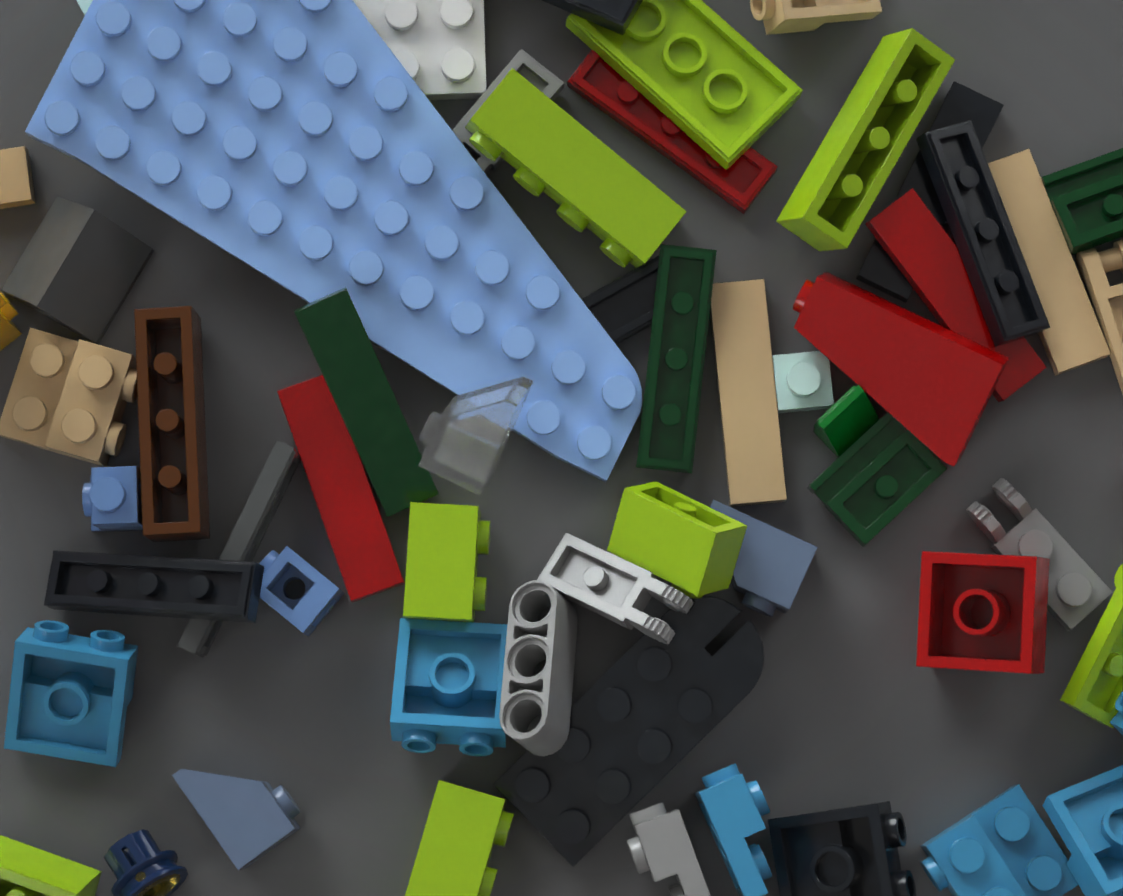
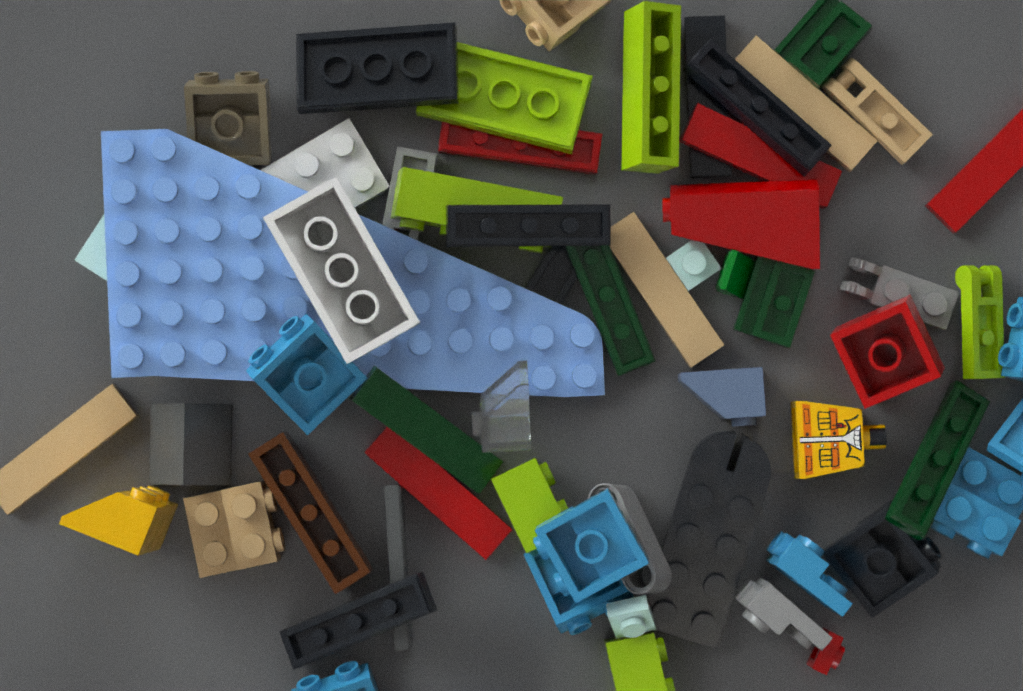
camera: 30 degrees left, 5 degrees up
(113, 499) = (300, 578): medium blue brick -> none
(256, 247) = (304, 373): none -> dark azure plate
(319, 593) = (460, 583): medium blue brick -> none
(367, 147) = (341, 270): none -> white slope
(483, 644) = (589, 546): none -> dark azure plate
(487, 763) = (631, 617): none -> light aqua plate
(611, 587) = (645, 462): light grey hinge -> none
(624, 220) = (528, 225): none -> black tile
(677, 538) = (671, 410): lime brick -> none
(856, 684) = (830, 438): none -> yellow torso
(972, 781) = (937, 460): none -> dark green tile

